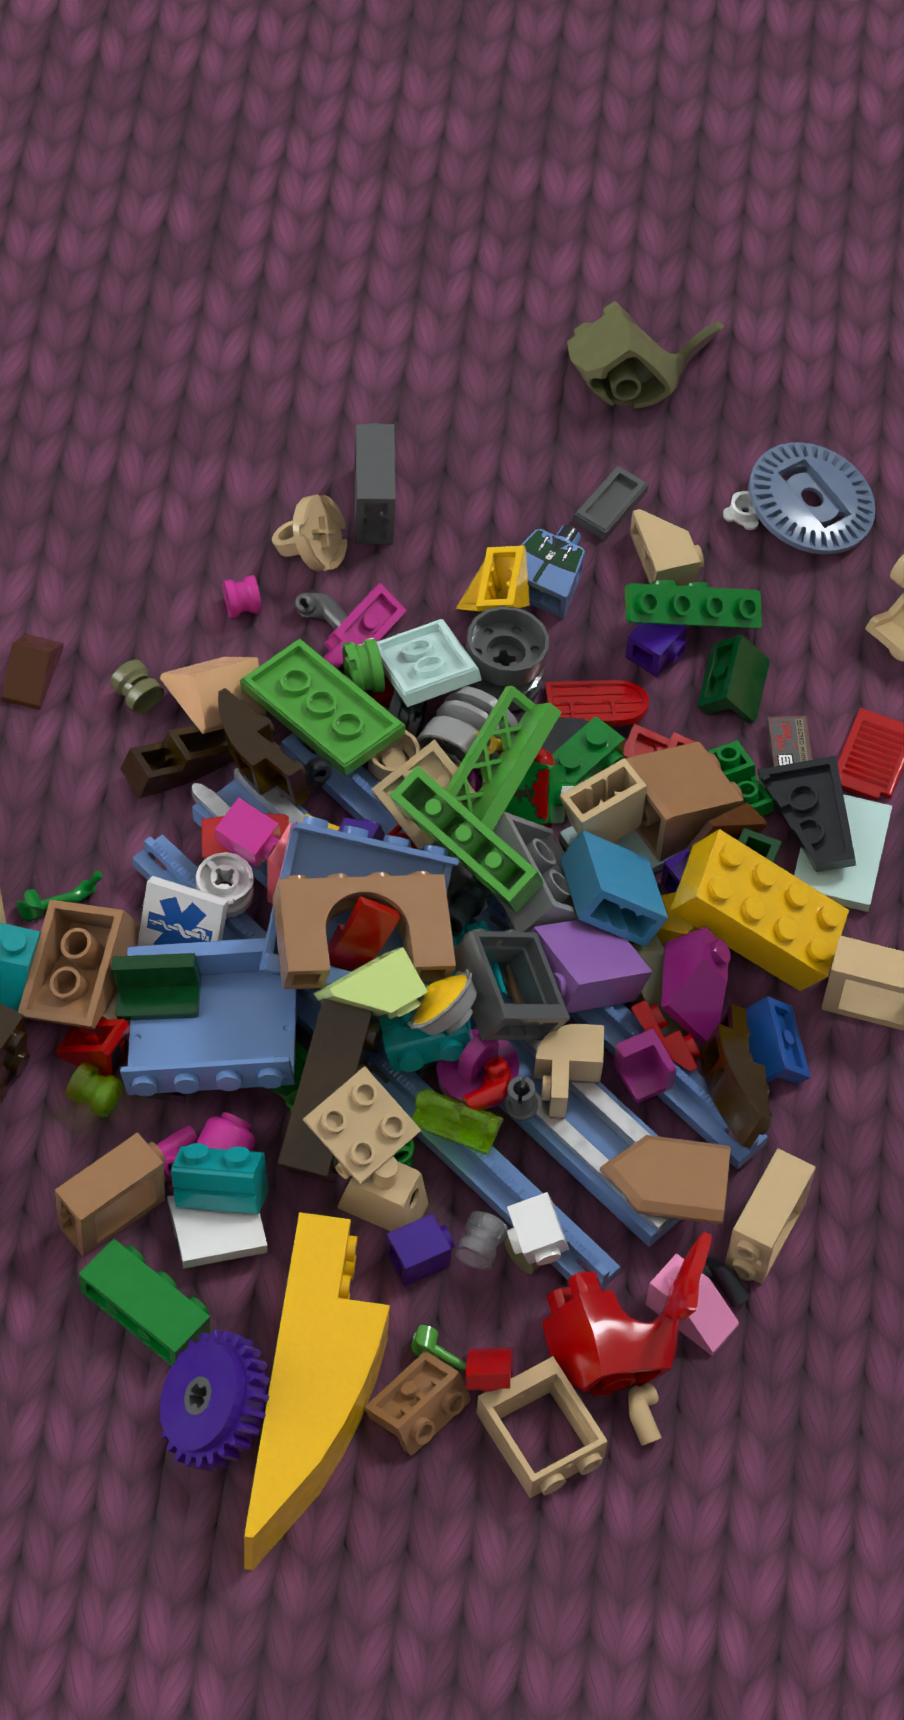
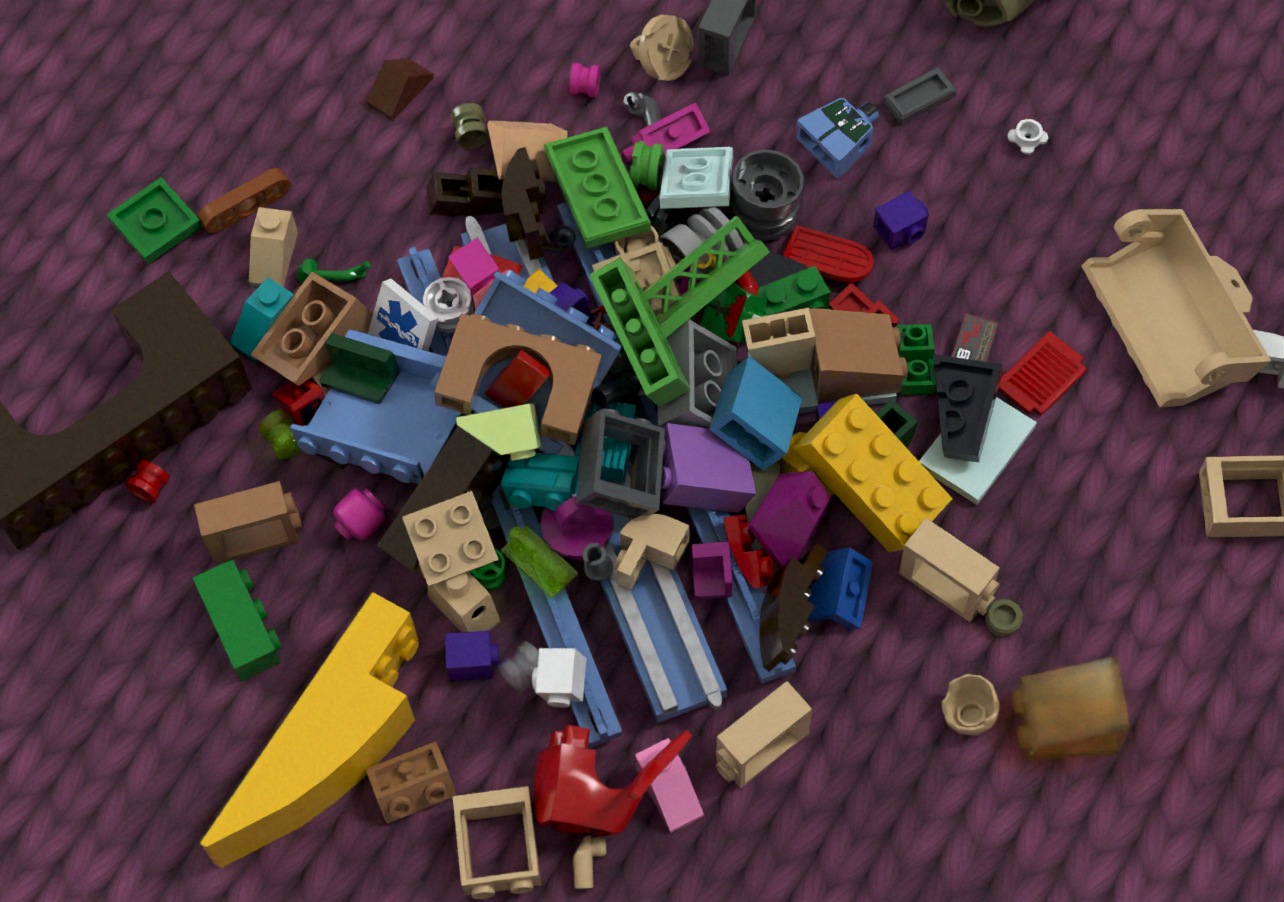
camera: 30 degrees right, 5 degrees up
(171, 1145) = (317, 505): dark pink arm -> none
(214, 1400) = (241, 720): dark purple gear -> none
(215, 1235) = (324, 576): white slope -> none
(219, 1179) = (336, 541): teal brick -> none
(426, 1339) = (441, 733): bright green hand -> none
(445, 1005) = (555, 463): piece -> none
(489, 1368) = (473, 775): red slope -> none
(494, 1085) = (573, 549): red arm -> none
(499, 581) = (792, 131): yellow slope -> none
(665, 549) = (943, 150): tan slope -> none
(673, 1178) = (694, 673): medium nougat tile -> none
(692, 605) = (938, 200): green bracket -> none
(728, 1279) = (708, 772): black arm -> none
(733, 823) = (880, 392): reddish brown slope -> none
(734, 678) = (953, 273): dark green panel -> none
(828, 475) = (1107, 123): sand blue piece -> none

